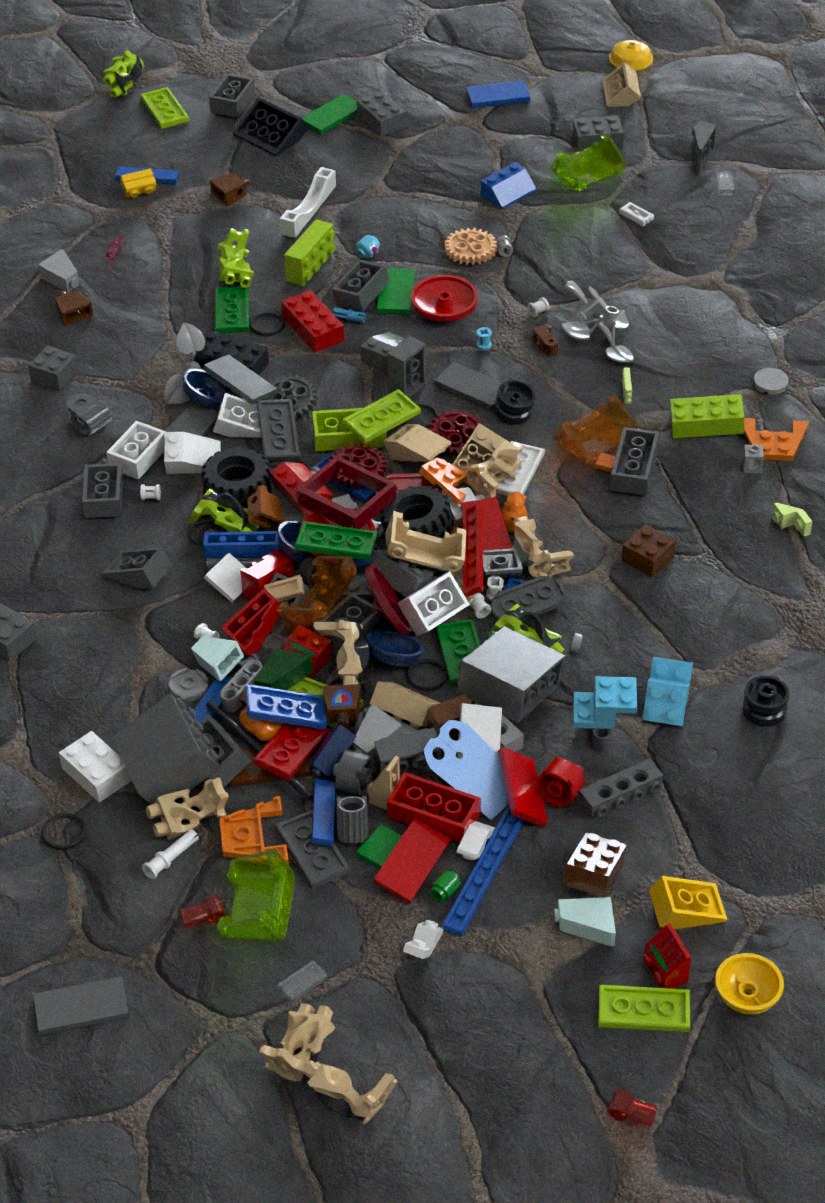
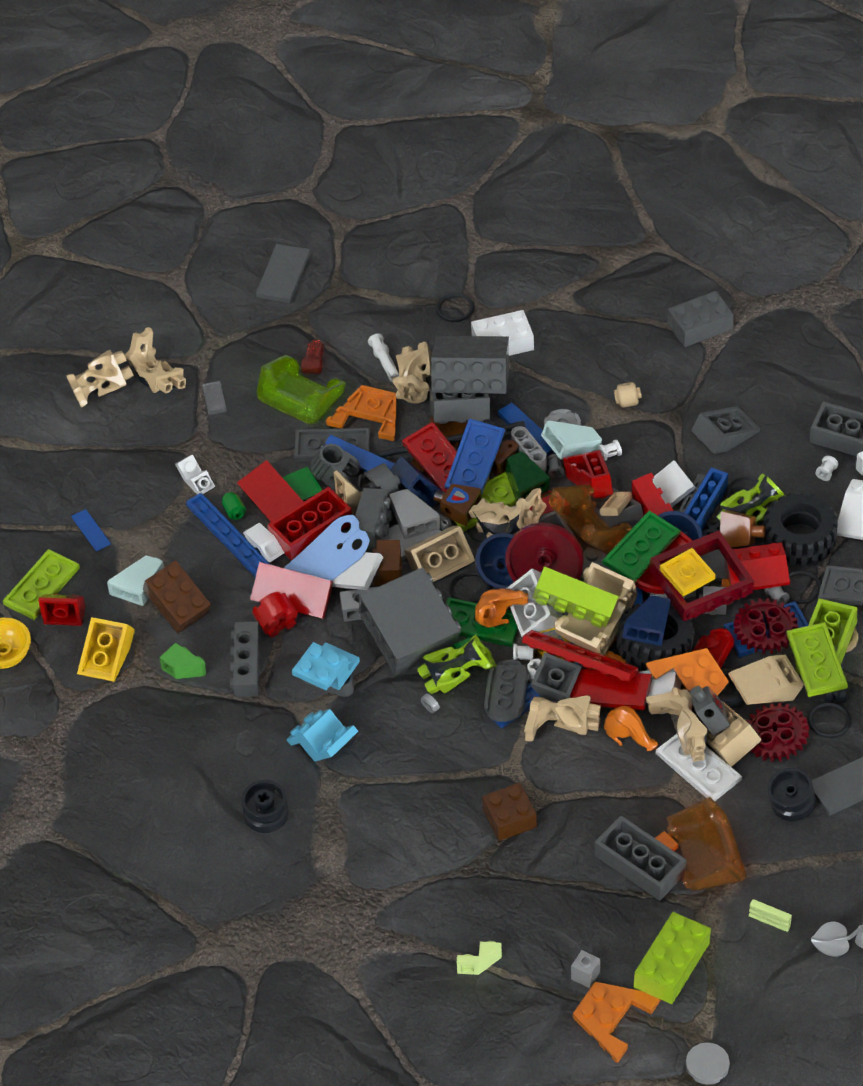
camera: 120 degrees right, 5 degrees up
(130, 645) = (627, 394): none -> tan head
(359, 486) = (687, 572): none -> yellow plate
(419, 502) = (648, 621): none -> dark blue slope
(431, 547) = (574, 597): none -> lime brick
(448, 630) = (494, 605): none -> orange piece
(476, 452) = (705, 702): none -> dark grey torso
(545, 1004) = (91, 530): none -> blue sticker
(660, 835) = (181, 663): none -> bright green slope

